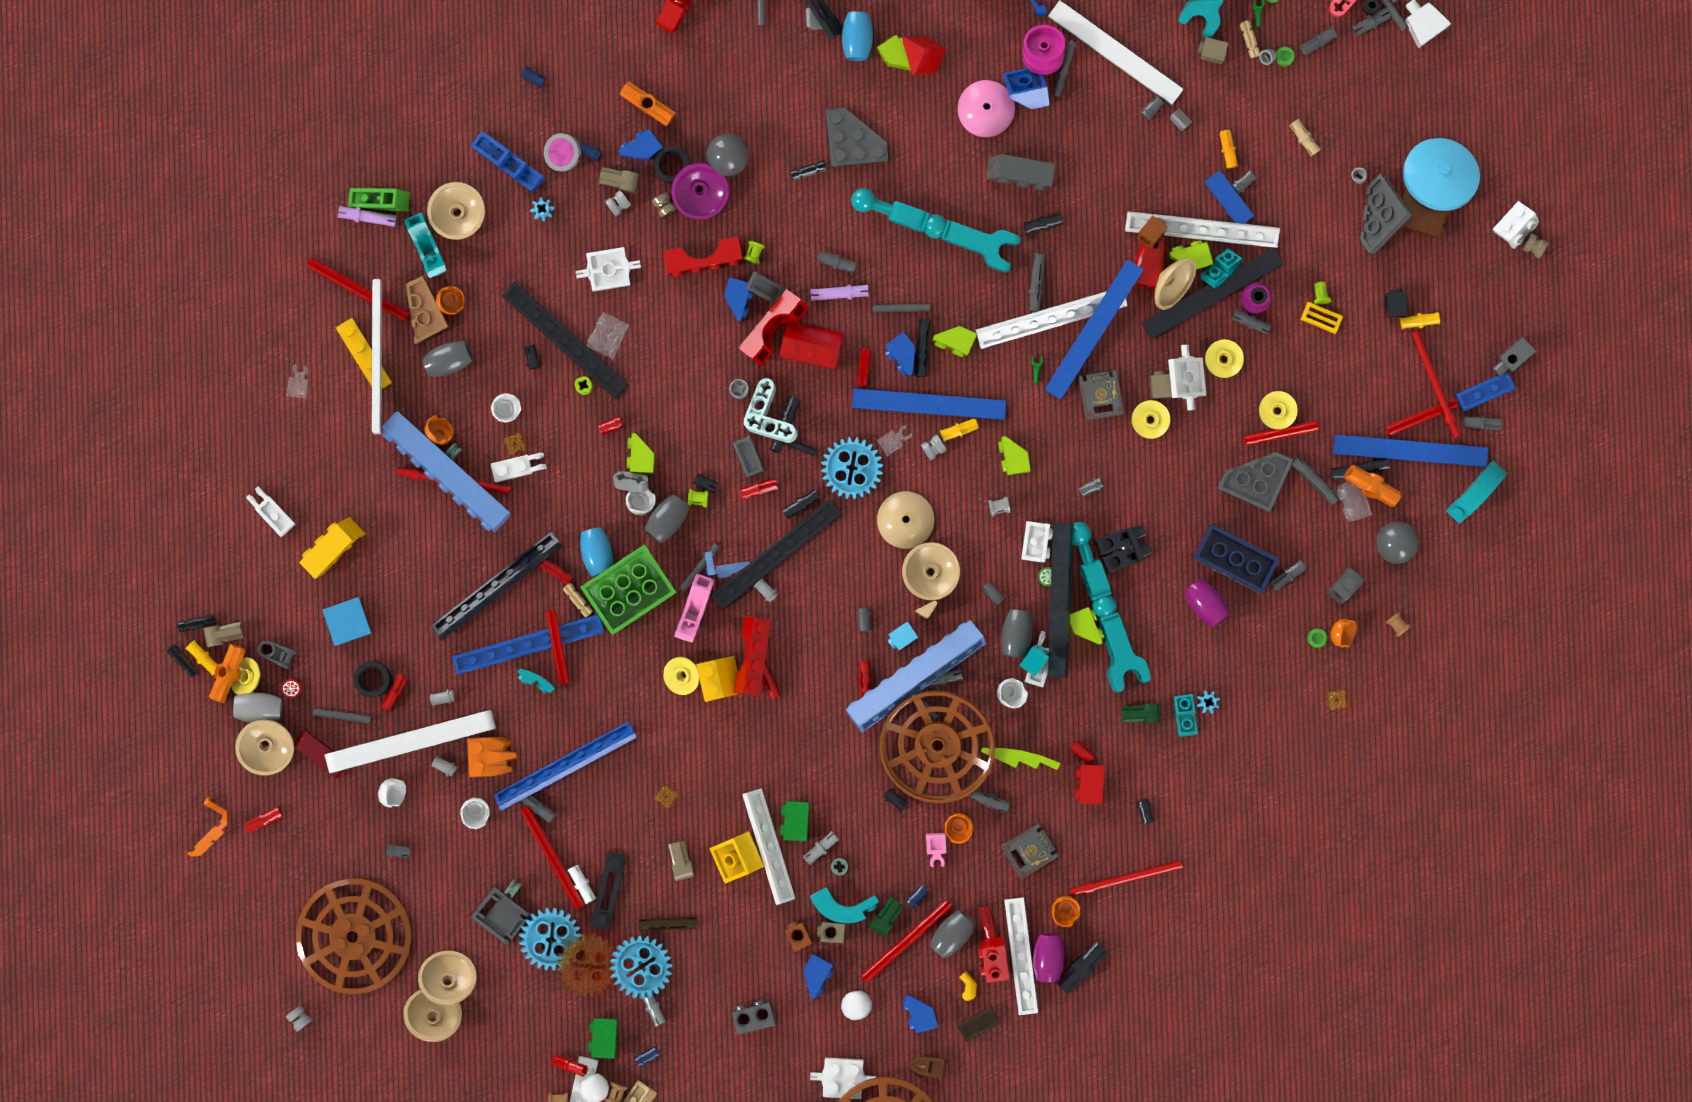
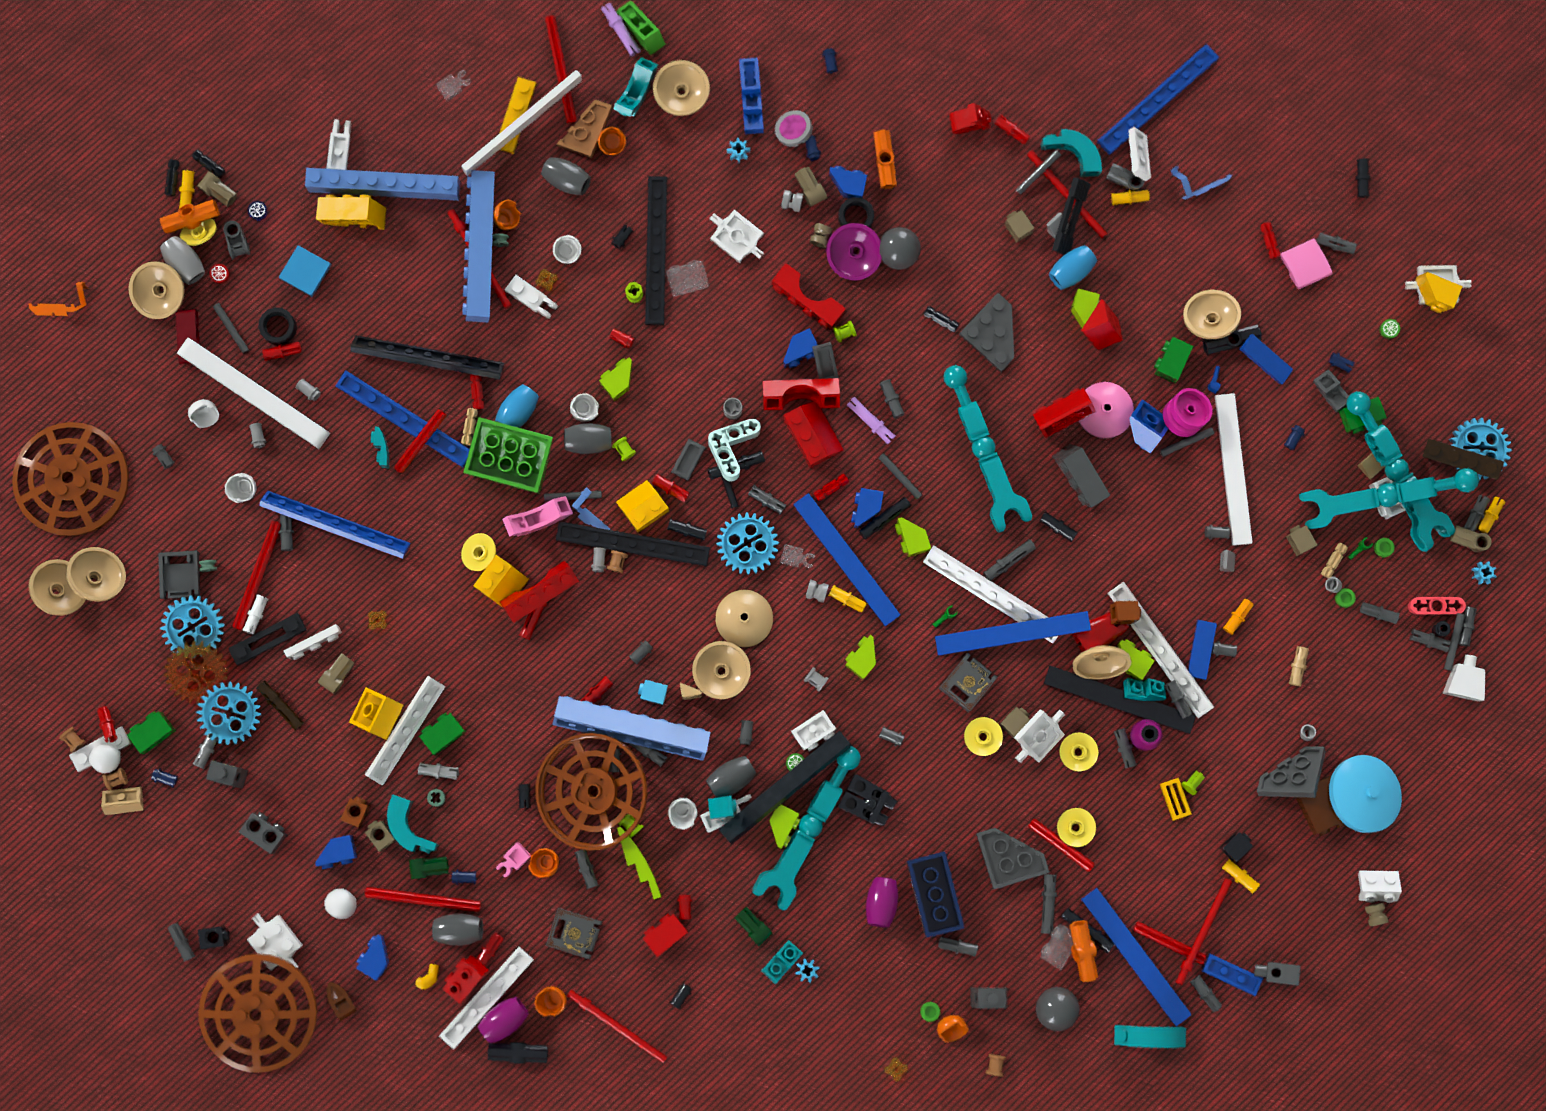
camera: 45 degrees right, 5 degrees down
(263, 819) = (102, 337): red axle -> none
(266, 617) = (257, 210): none -> clear blue tile
(330, 504) = (382, 184): none -> medium blue brick
(489, 756) = (293, 462): orange plate -> none
(630, 481) = (592, 388): light grey beam -> none
(642, 858) = (313, 642): none -> white plate
(685, 1008) = (226, 774): none -> dark grey torso
(704, 483) = (640, 444): black pin -> none
(753, 522) = (642, 506): none -> yellow slope
(779, 578) = (617, 561): none -> medium nougat bush
(788, 47) = (1019, 225): none -> dark tan brick
(831, 424) = (767, 499): none -> dark grey pin
(961, 142) = (1064, 412): none -> red slope
(977, 1024) = (405, 1010): dark brown plate -> none
(983, 739) = (627, 822): none -> lime bush
(994, 23) = (1173, 360): none -> green brick
(1250, 249) = (1178, 699): none -> dark grey axle

